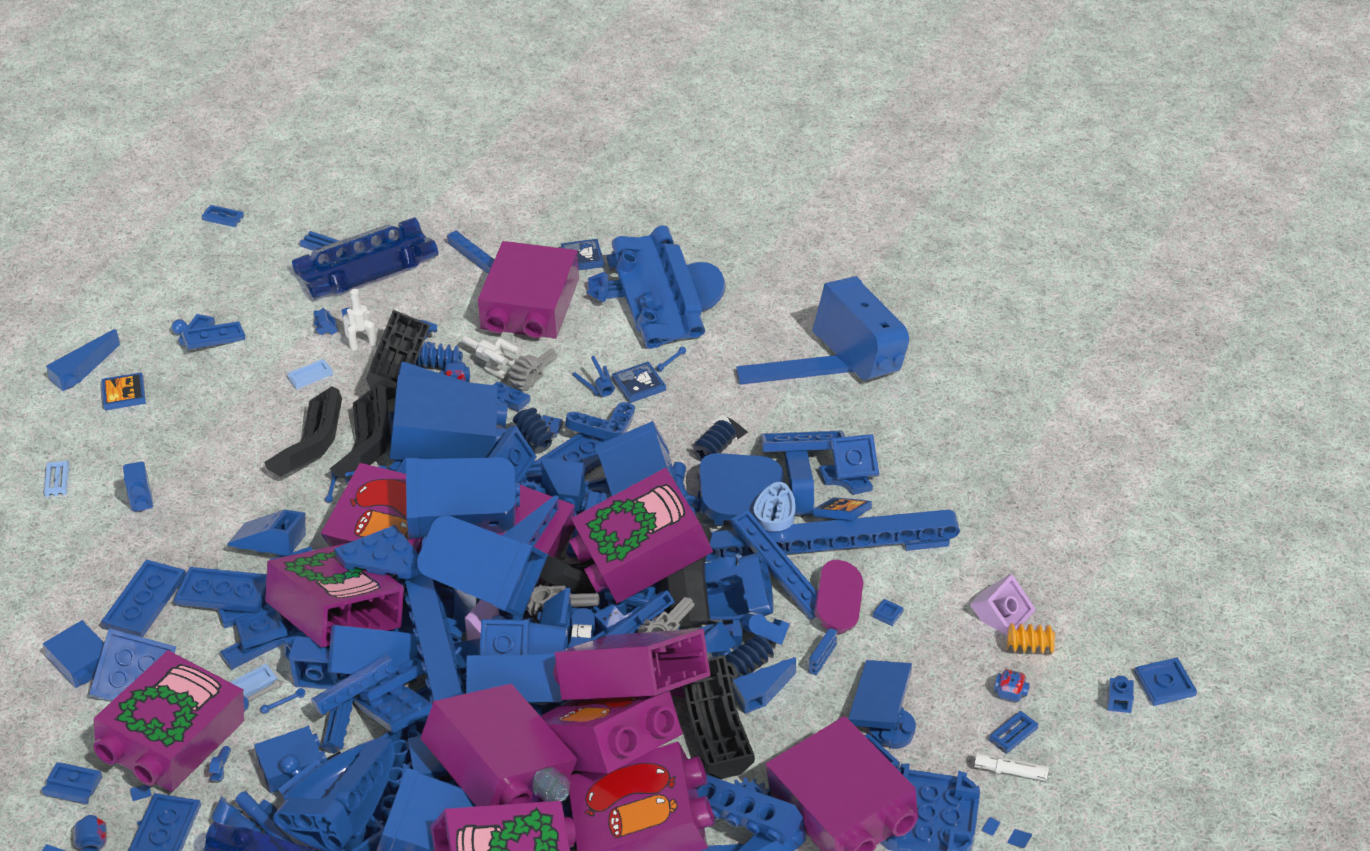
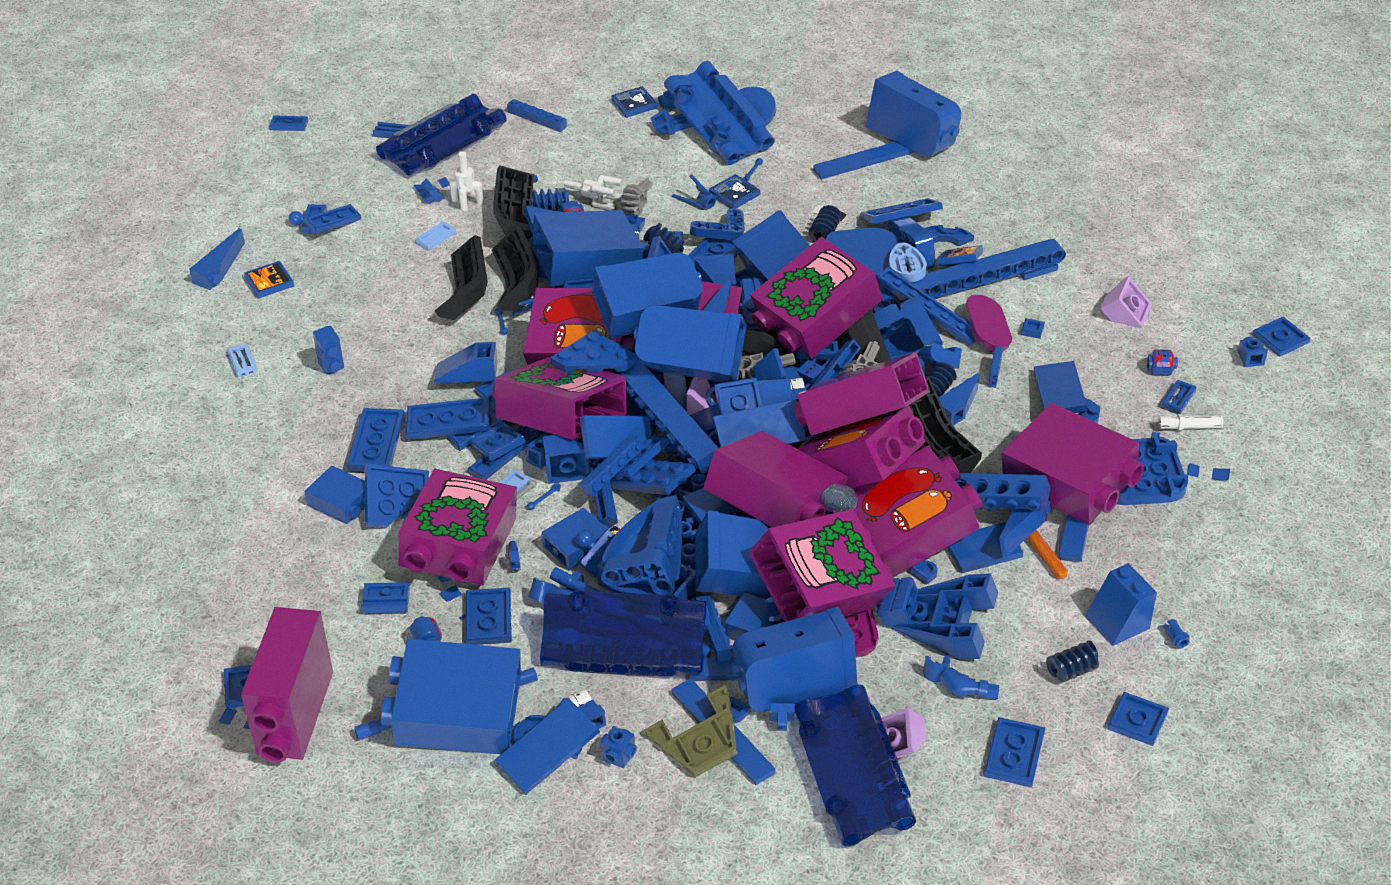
camera: 15 degrees left, 0 degrees up
(528, 290) = (605, 134): magenta brick -> none
(854, 457) = (952, 214): blue tile -> none
(1031, 638) = (1161, 322): light orange piece -> none

